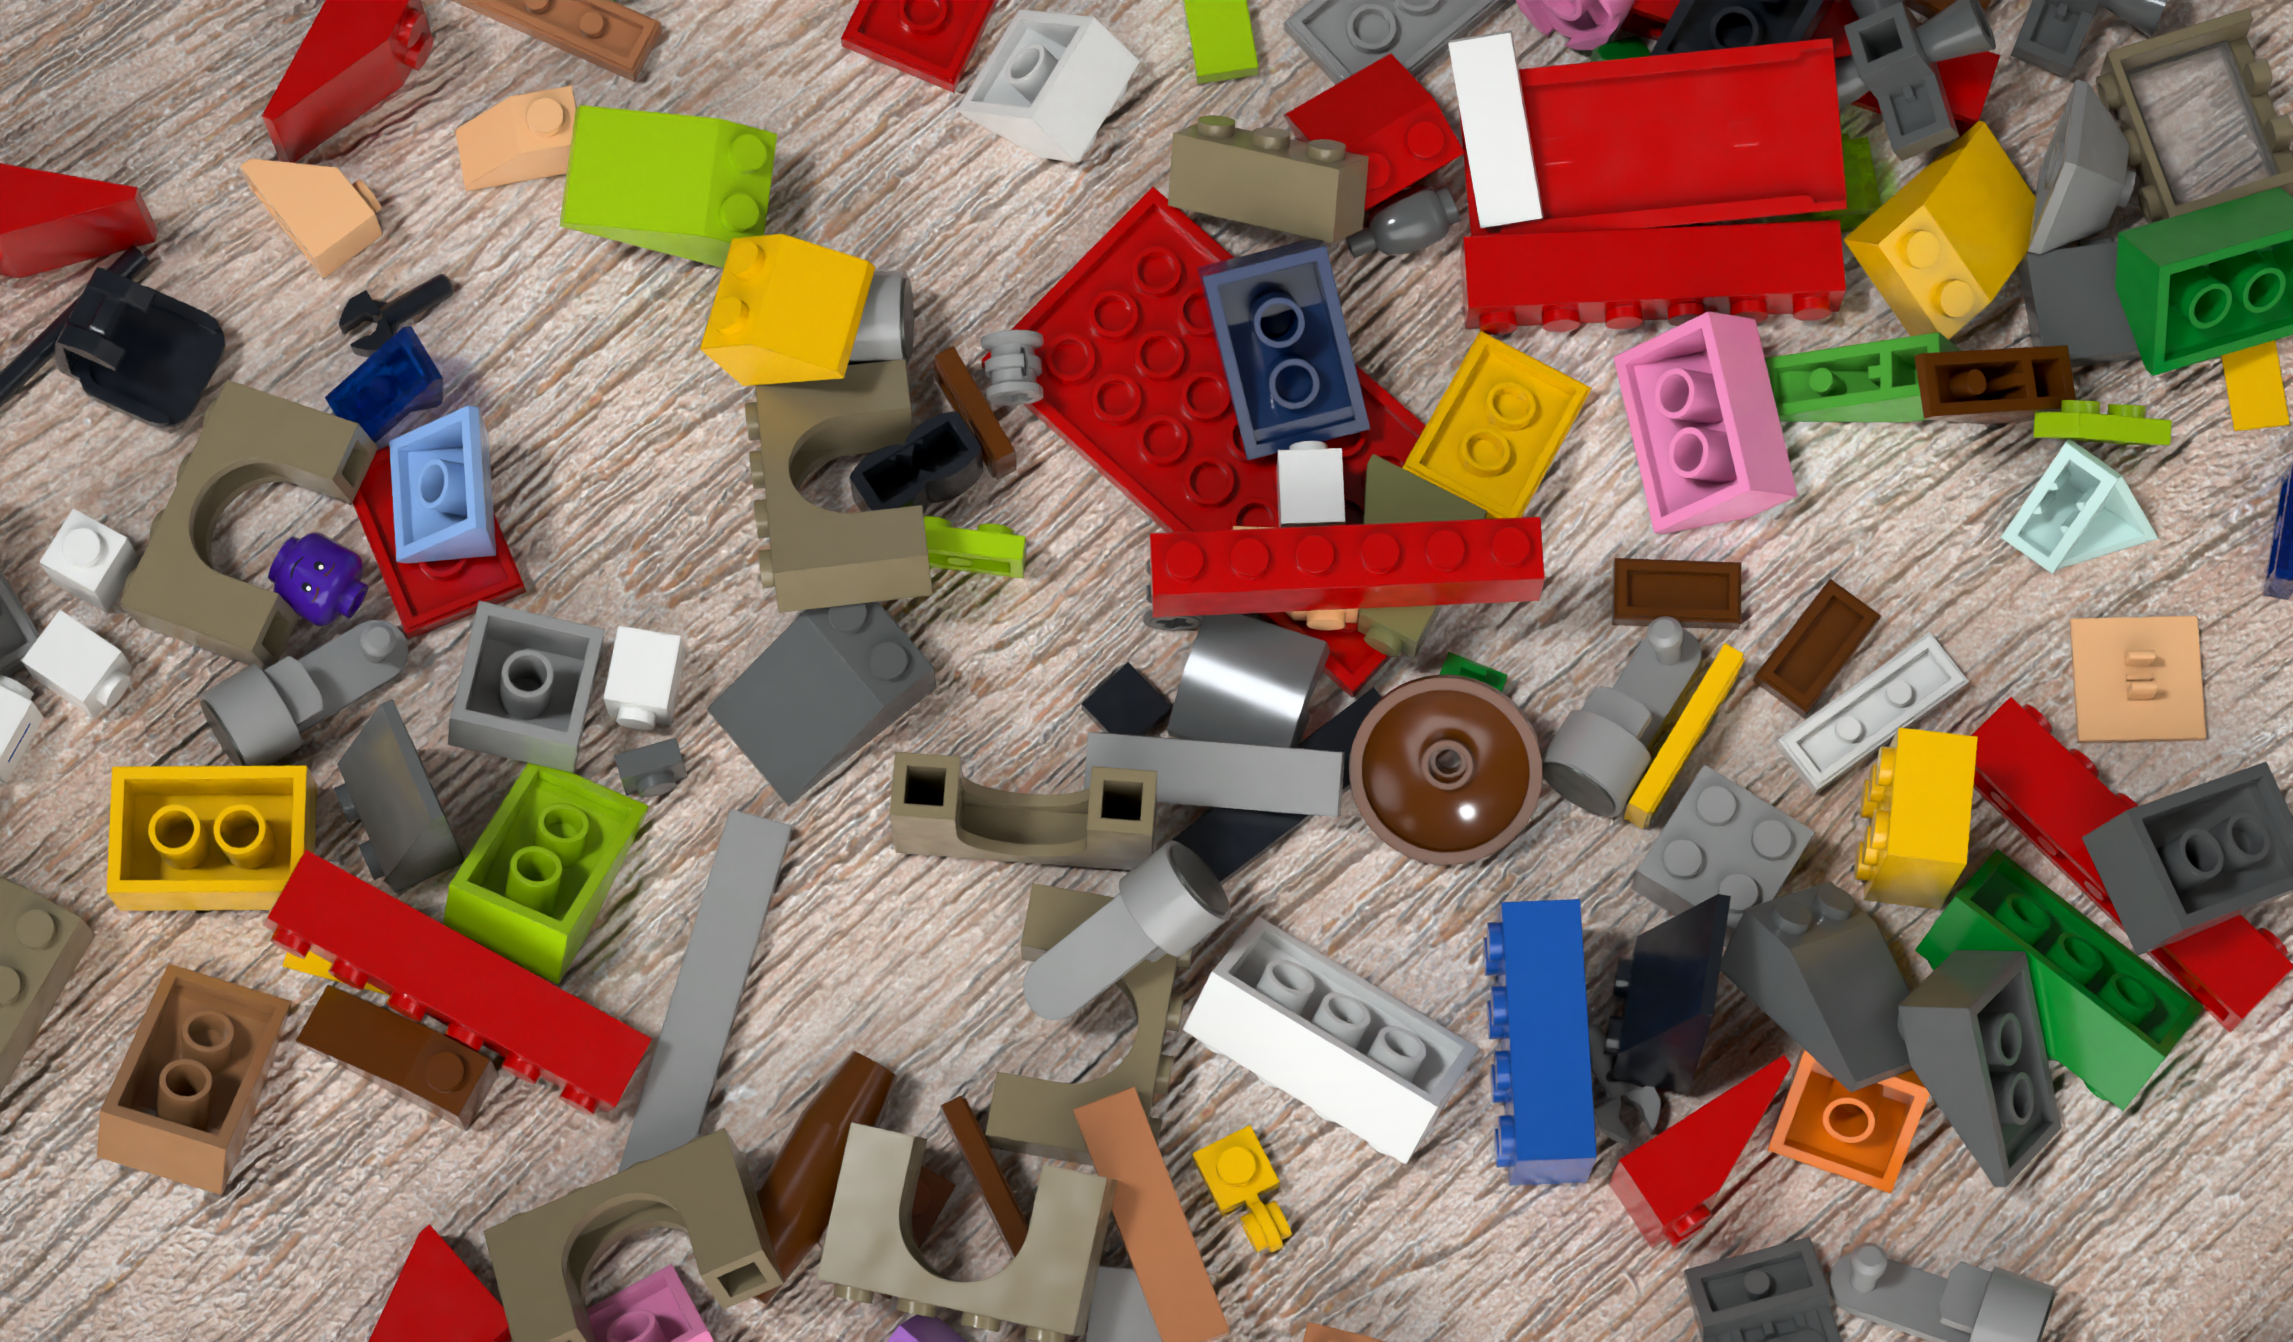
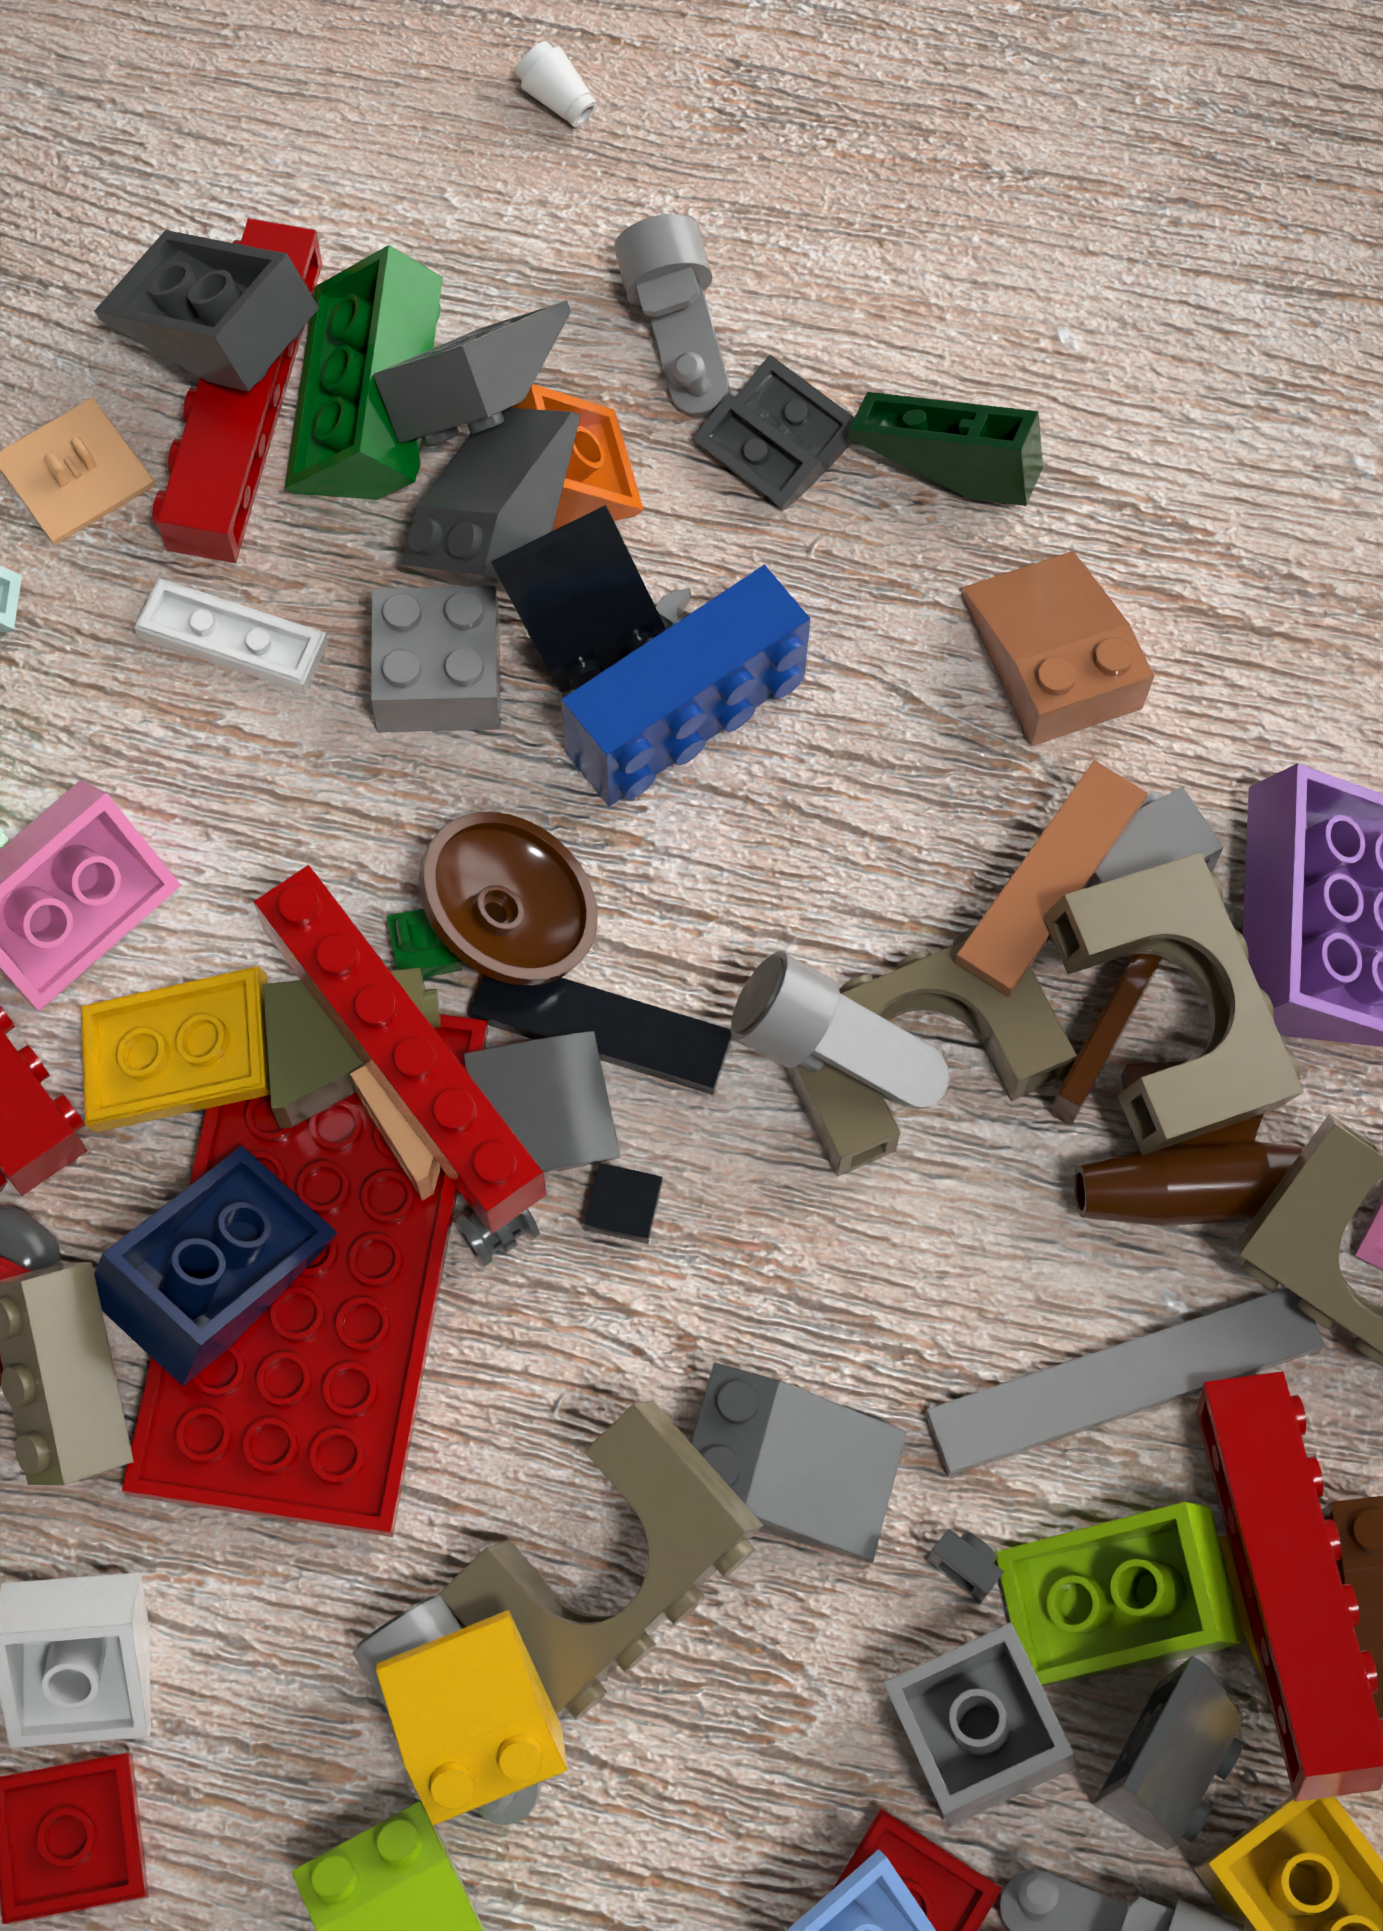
camera: 125 degrees left, 5 degrees down
(644, 677) = (891, 1629): white brick -> none
(930, 467) = (522, 1505): black brick -> none
(950, 816) = (829, 1262): dark tan arch -> none
(968, 400) = (444, 1506): reddish brown tile -> none
(988, 550) = (564, 1407): lime plate -> none
(1013, 366) = (384, 1486): light grey bush -> none
(1227, 772) = (639, 1082): light grey tile -> none
(1237, 1175) = (948, 865): yellow plate -> none
(1310, 485) = (336, 1151): white brick -> none
(1330, 1039) = (792, 851): white slope -> none
(1607, 743) = (404, 795): light grey piece -> none
(1680, 1172) = (692, 521): red slope -> none
(1684, 737) = (348, 749): yellow tile -> none
(1689, 591) = (224, 836): reddish brown tile -> none
(1817, 648) = (202, 706): reddish brown tile -> none
(1918, 818) = (312, 510): yellow brick -> none

